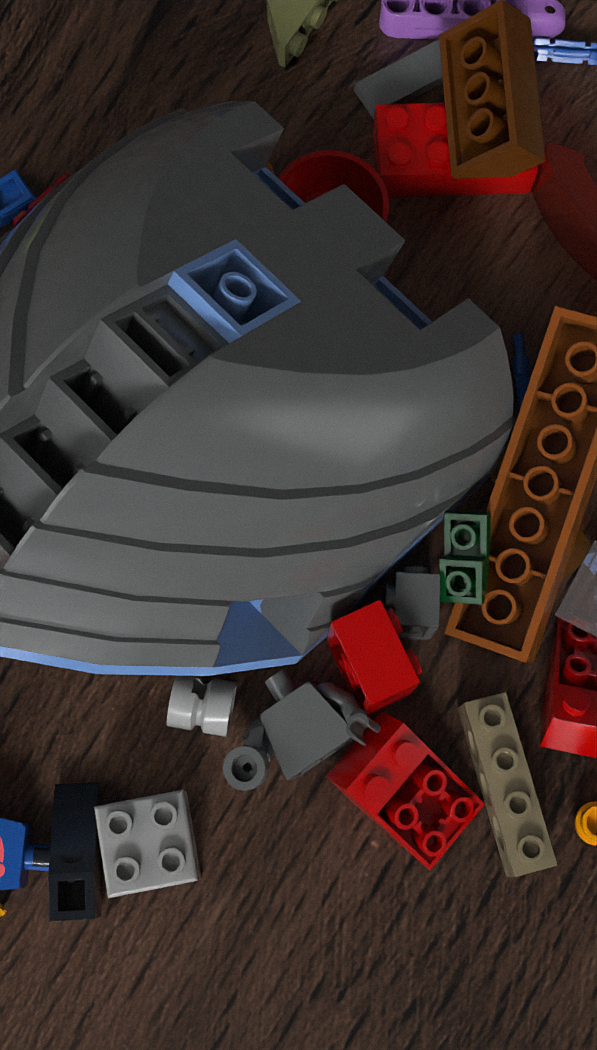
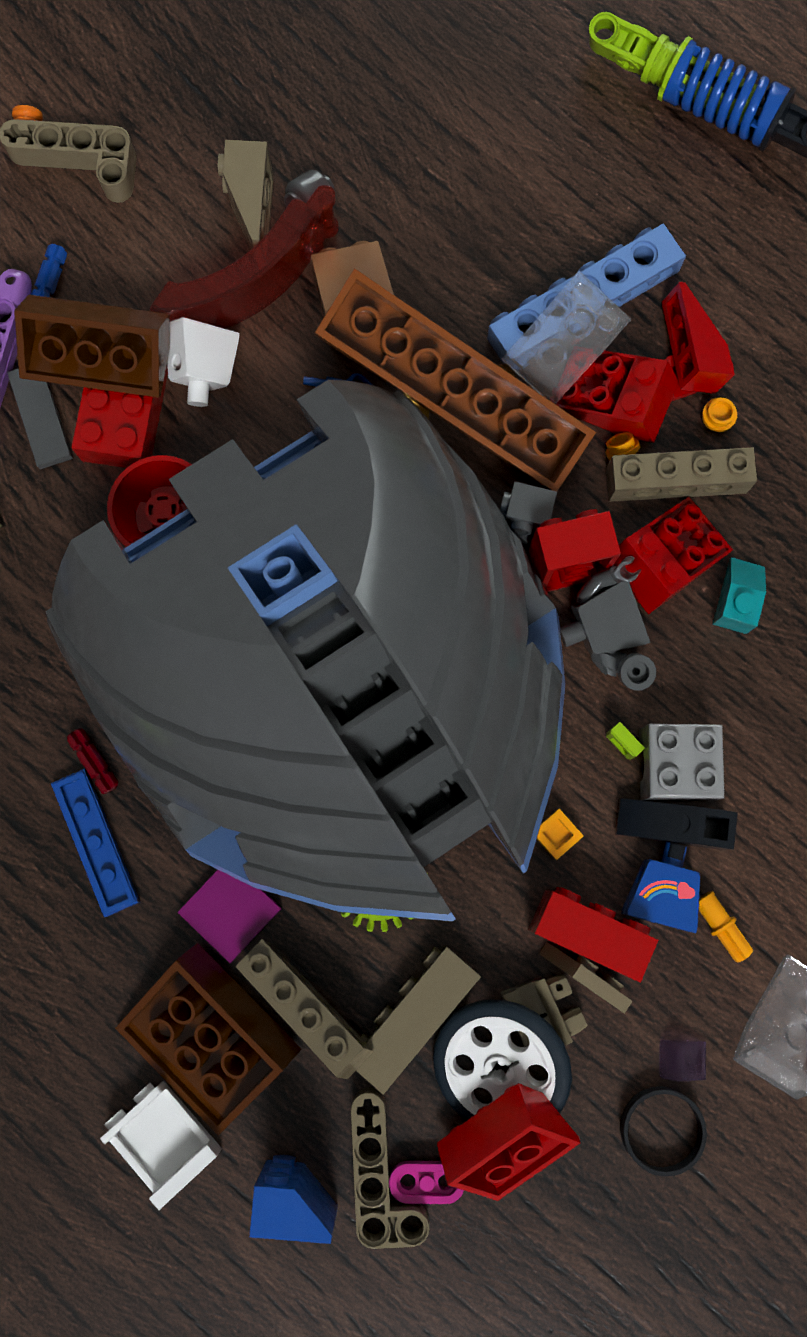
camera: 75 degrees left, 5 degrees up
(43, 714) = (558, 834): none -> light orange plate
(165, 773) = (624, 741): none -> lime tile
(202, 704) = (580, 694): light grey wheel -> none
(374, 888) = (741, 596): none -> teal slope
(465, 556) = (502, 458): dark green slope -> none
(512, 214) = (200, 358): none -> white torso
(526, 708) = (622, 444): none -> light orange plate

